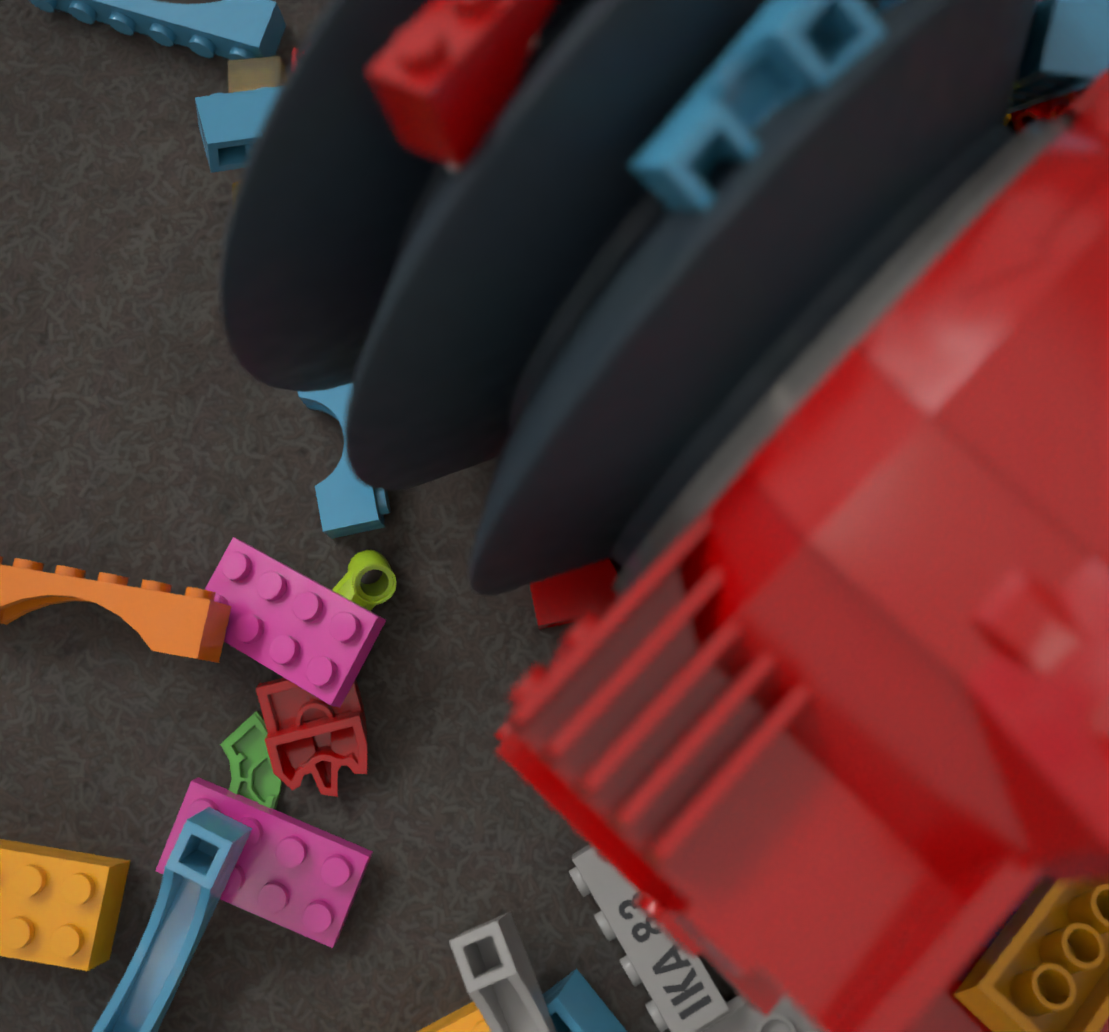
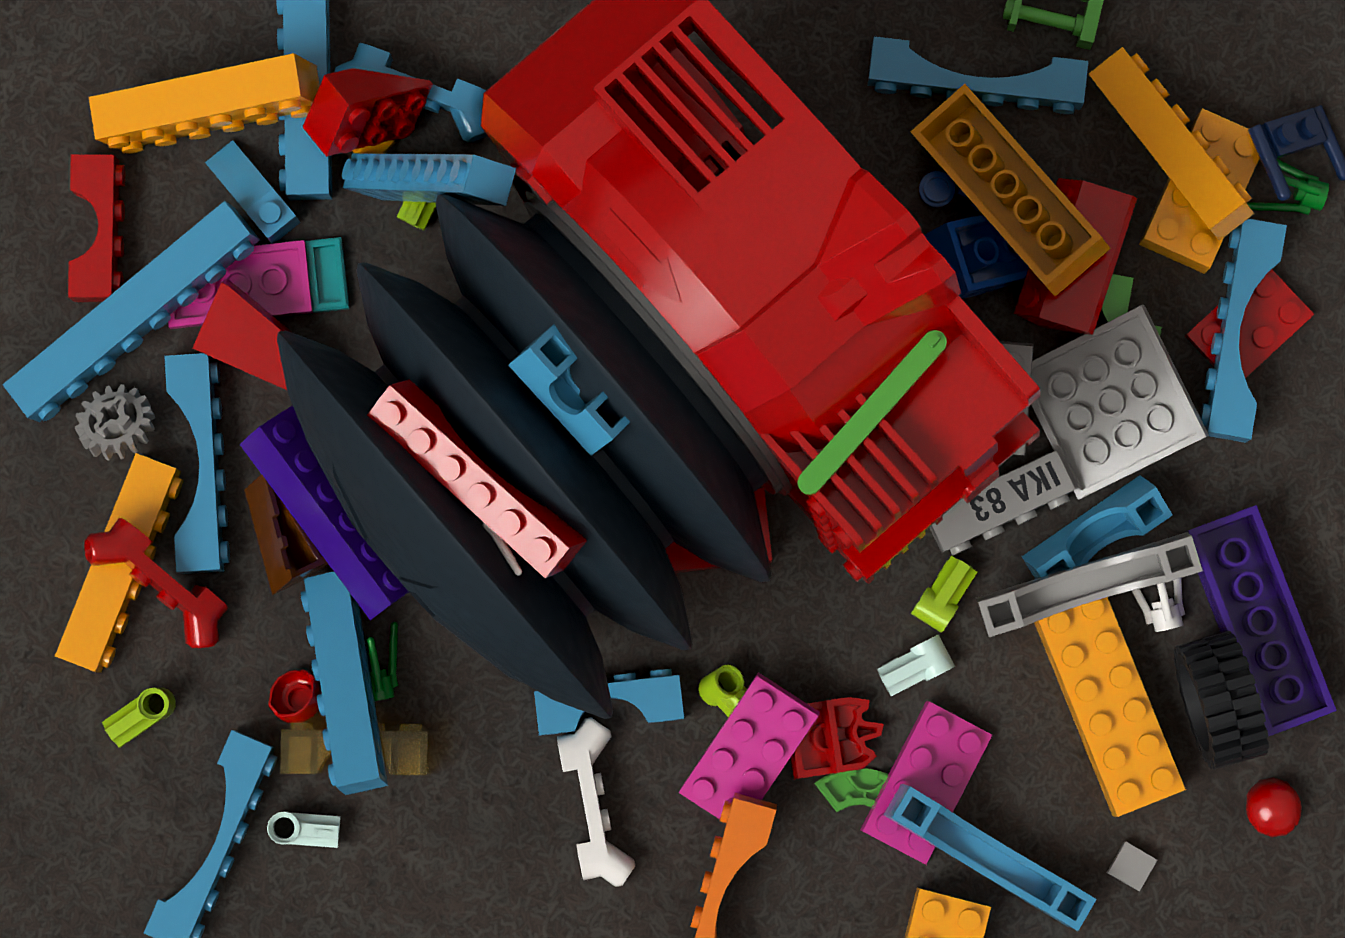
camera: 85 degrees left, 5 degrees up
(152, 441) = (579, 753): none -> white plate
(169, 102) = (309, 829): none -> light aqua piece
(420, 839) = (922, 663): none -> light aqua piece
(507, 860) = (941, 600): none -> lime piece
(781, 723) = (872, 412): none -> bright green piece

